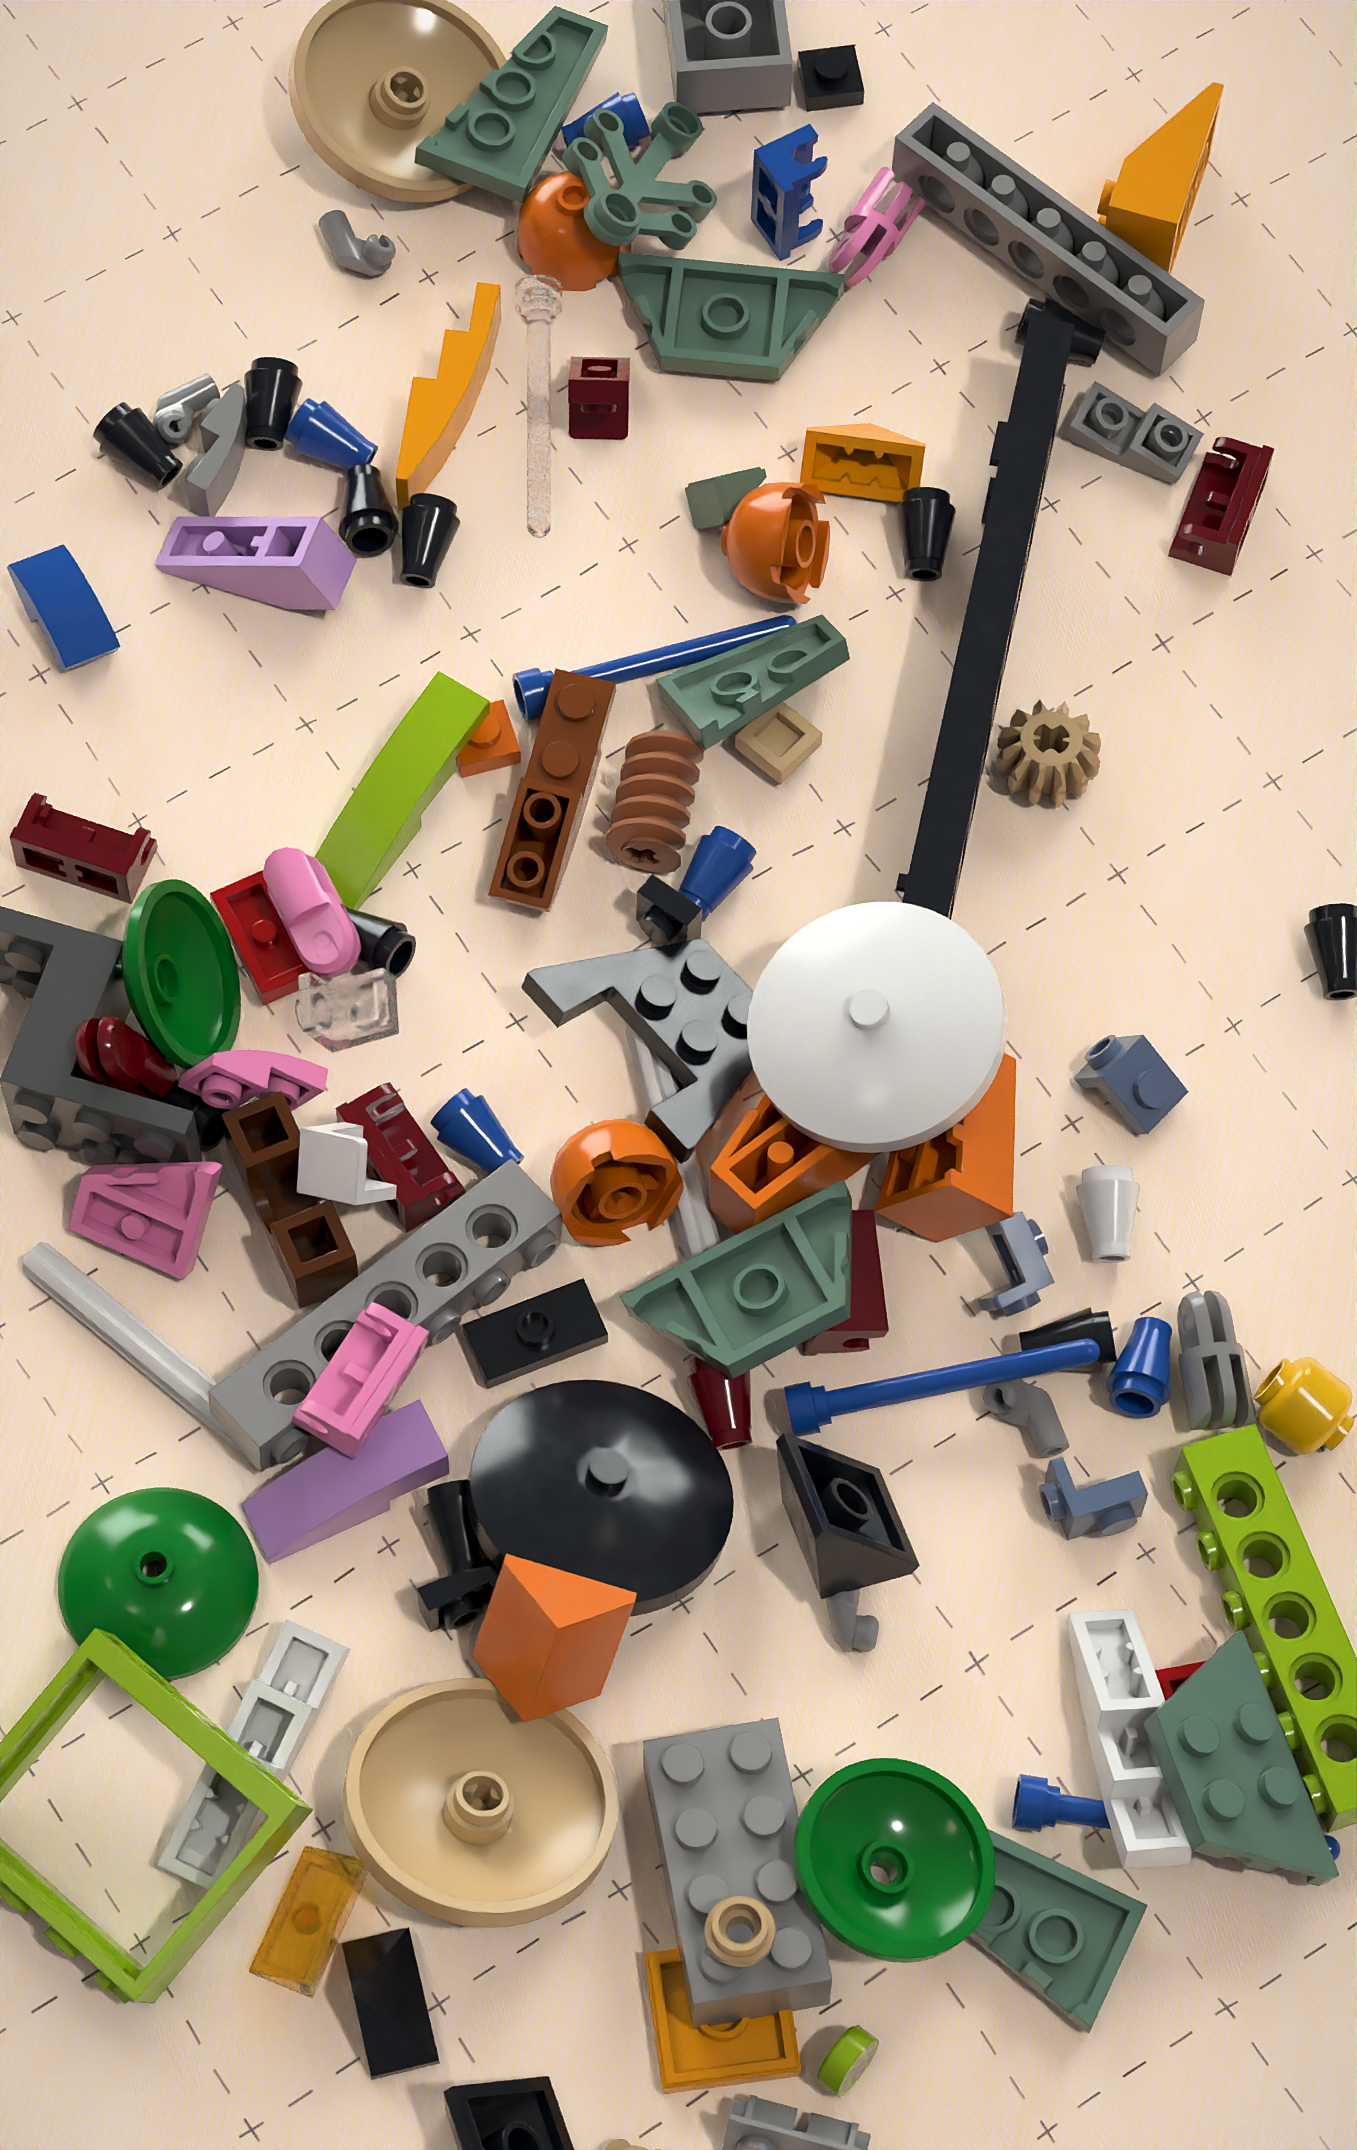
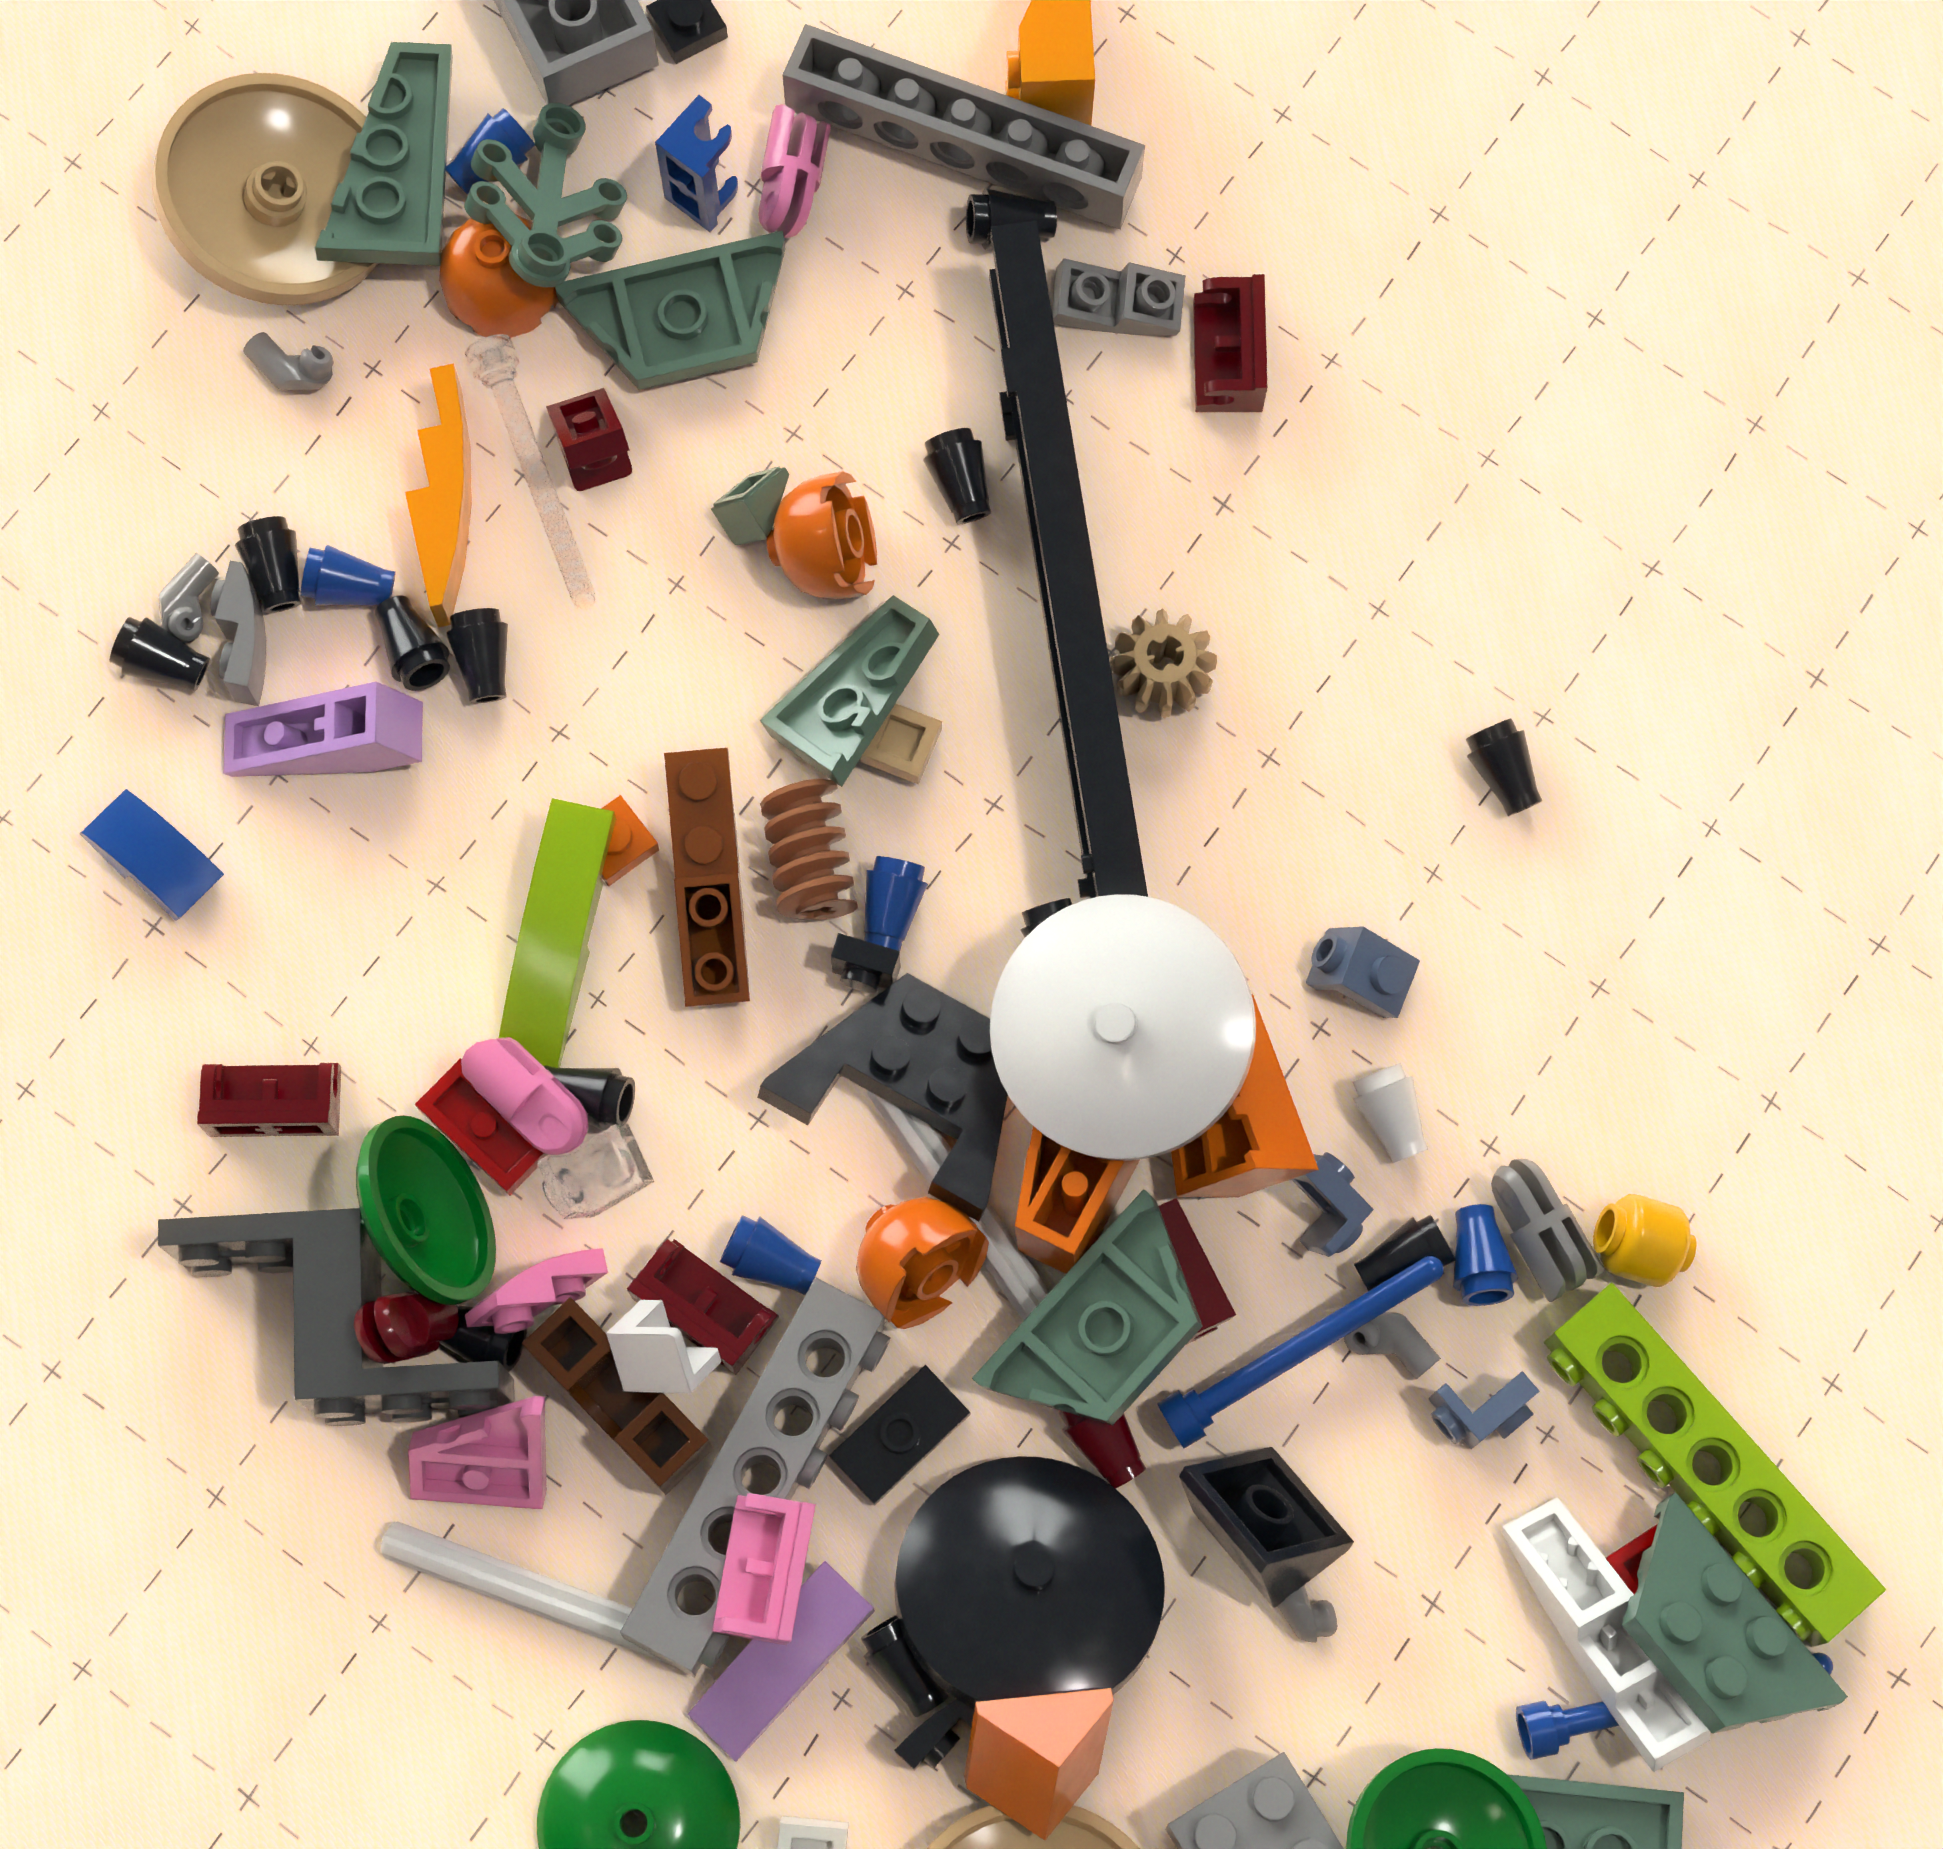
camera: 20 degrees left, 10 degrees up
(533, 686) = (647, 772): blue piece -> none
(862, 461) = (871, 419): light orange slope -> none

